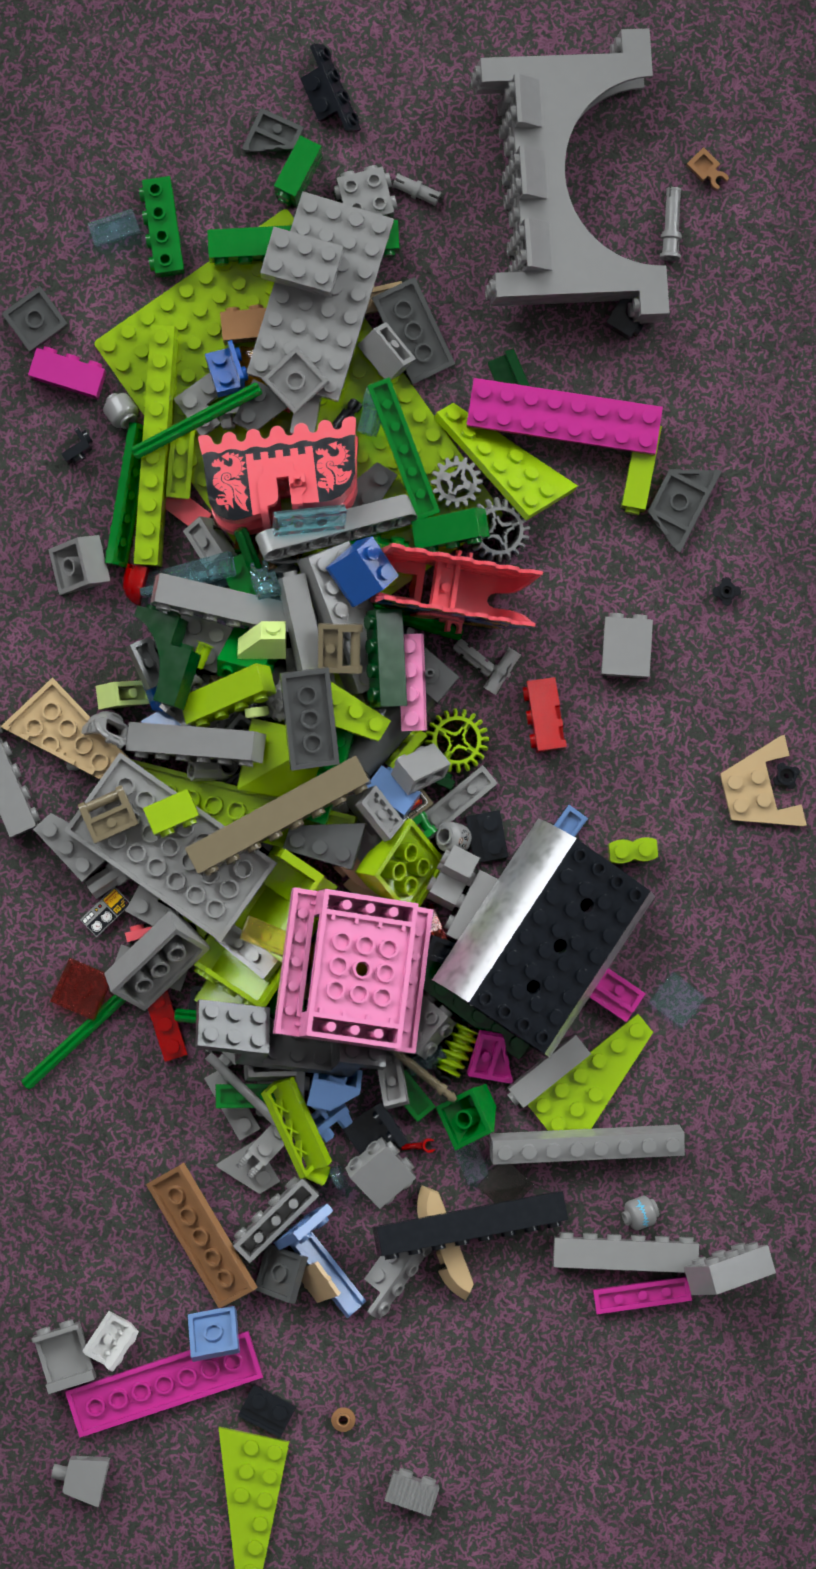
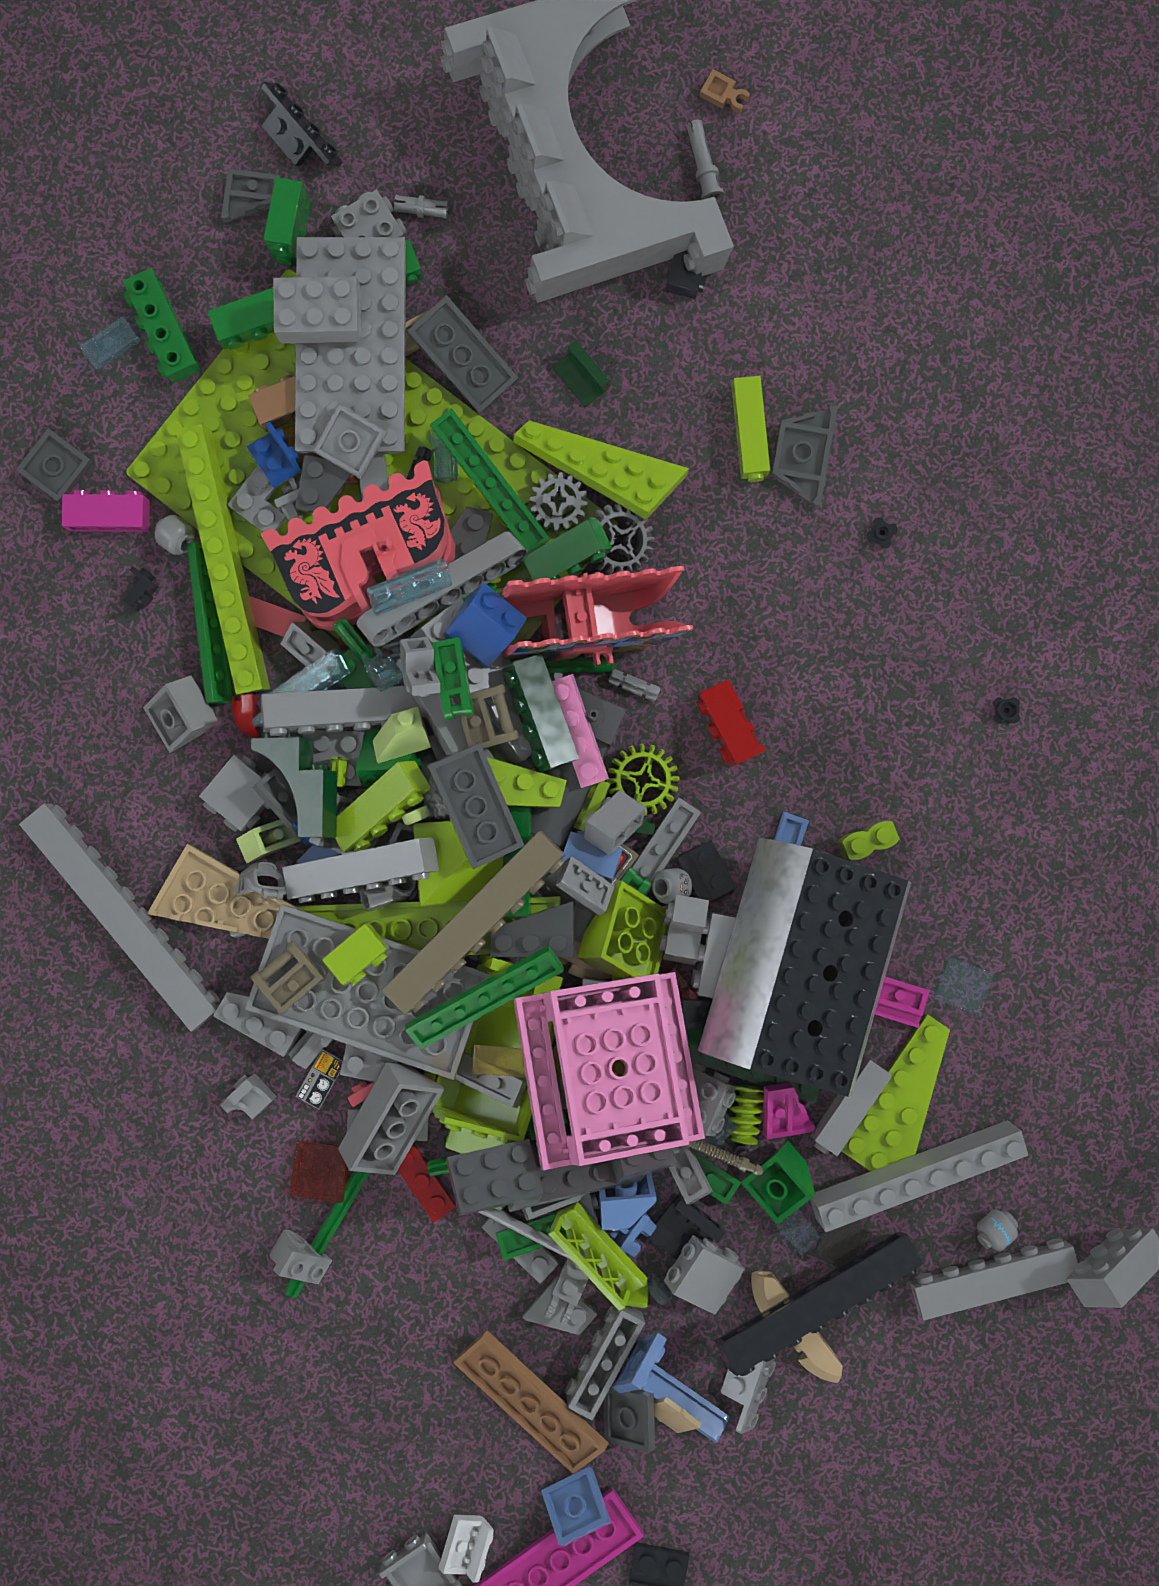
camera: 15 degrees left, 0 degrees up
(41, 906) = (249, 1096): none -> light grey brick
(43, 1056) = (298, 1259): none -> light grey pin
(107, 649) = (233, 794): none -> light grey brick
(180, 467) = (254, 571): lime plate -> none
(196, 420) = (255, 518): green axle -> none
(267, 879) = (484, 997): none -> green plate
(296, 589) = (418, 667): none -> light grey brick
(322, 607) = (453, 677): none -> green plate
(343, 1411) = (741, 1546): medium nougat plate -> none
(386, 351) = (440, 384): light grey brick -> none
(419, 1145) = (738, 1227): red hand -> none
(502, 670) = (668, 690): light grey pin -> none
(564, 416) = (653, 396): dark pink plate -> none
(627, 646) = (794, 623): light grey panel -> none
(641, 1295) = (1025, 1318): dark pink plate -> none
(750, 790) = (972, 737): tan wing -> none

